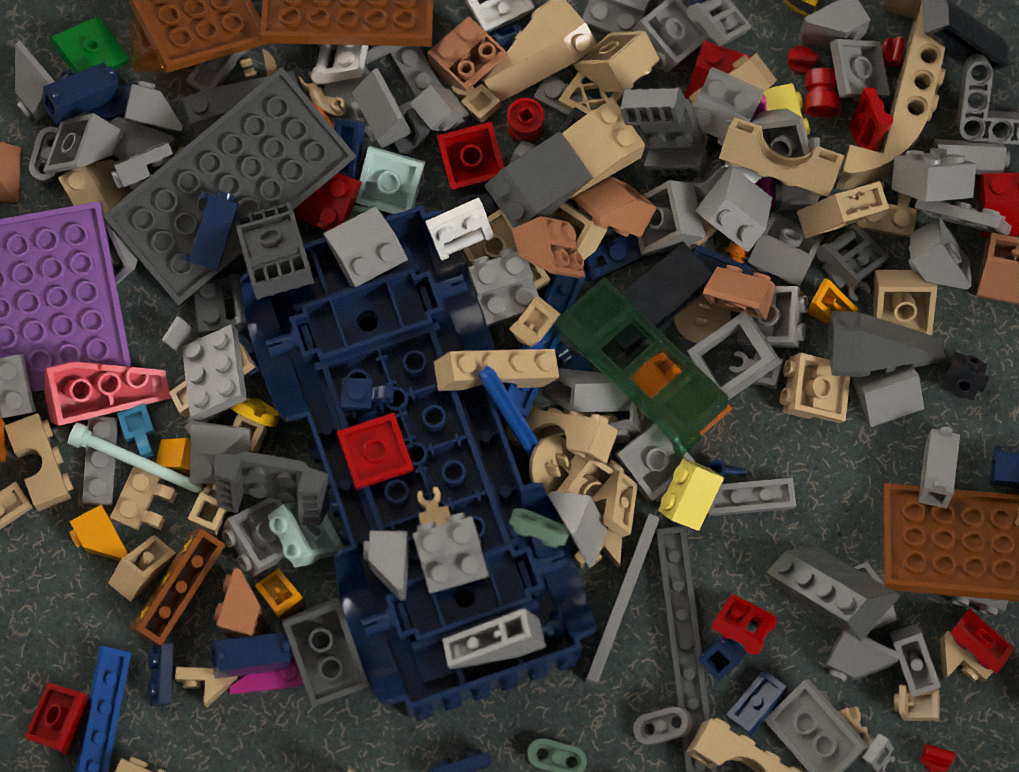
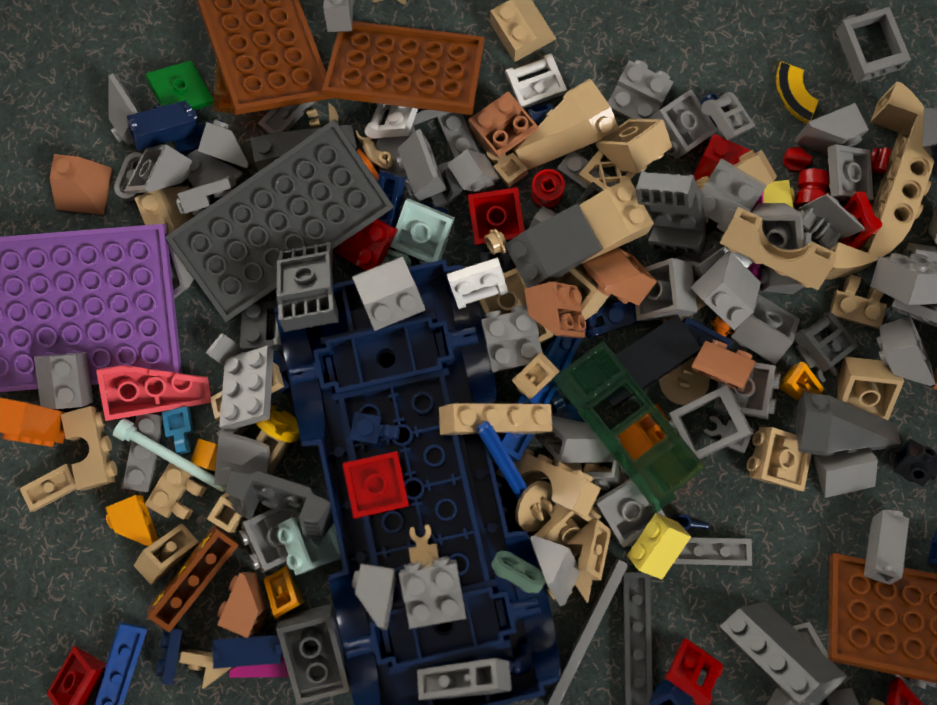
camera: 15 degrees right, 5 degrees up
(213, 230) = (259, 261): dark blue brick -> none
(474, 183) = (495, 242): none -> tan plate
(840, 121) = (830, 220): none -> light grey hinge
(842, 209) = (826, 301): tan window -> none

